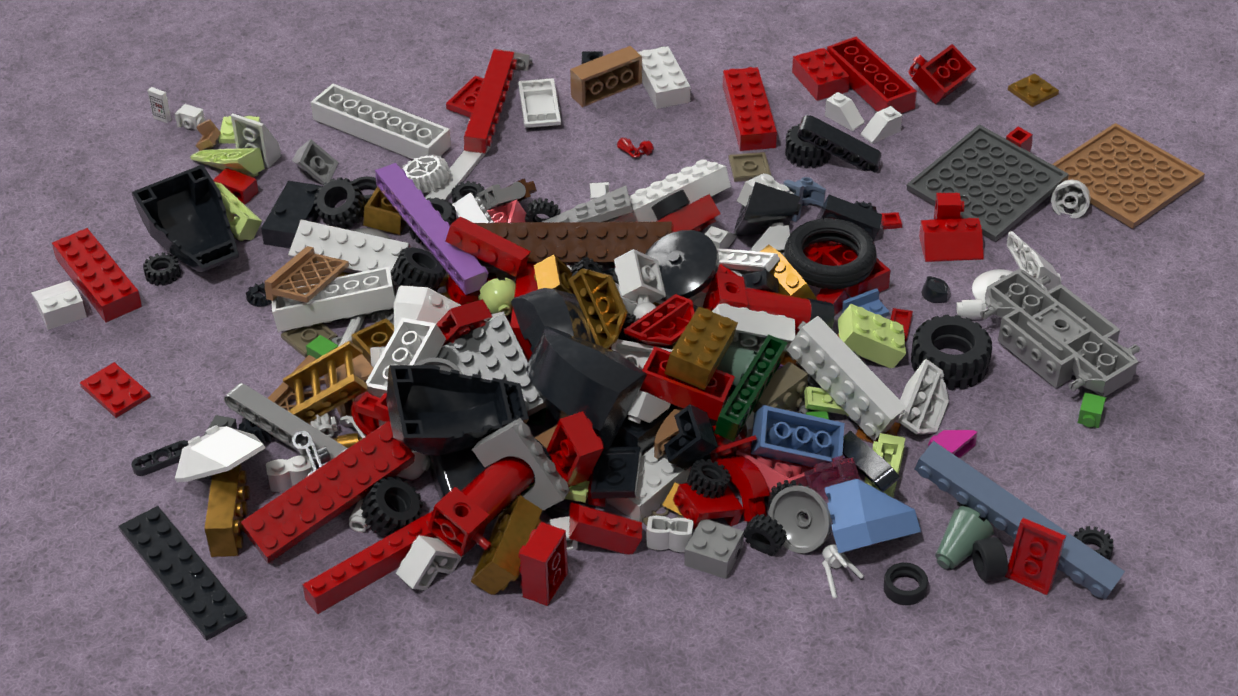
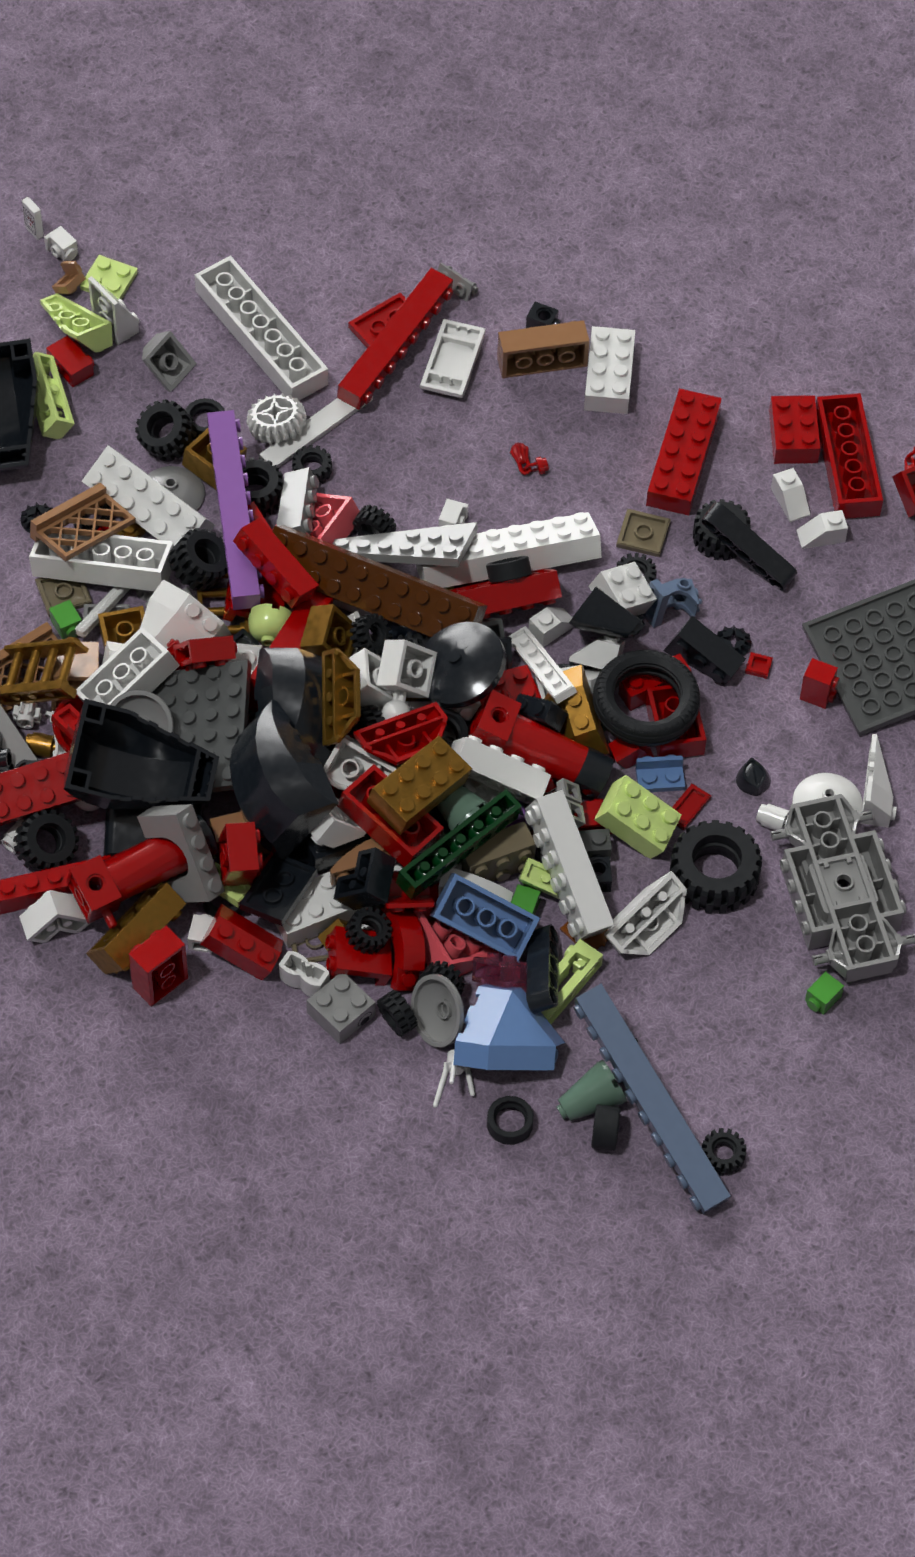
camera: 20 degrees right, 15 degrees up
(292, 205) = (110, 422): black brick -> none
(495, 196) = (348, 483): light grey hips -> none
(951, 239) = (807, 719): red slope -> none
(956, 441) = (650, 979): dark pink slope -> none
(1035, 556) = (646, 1145): red plate -> none

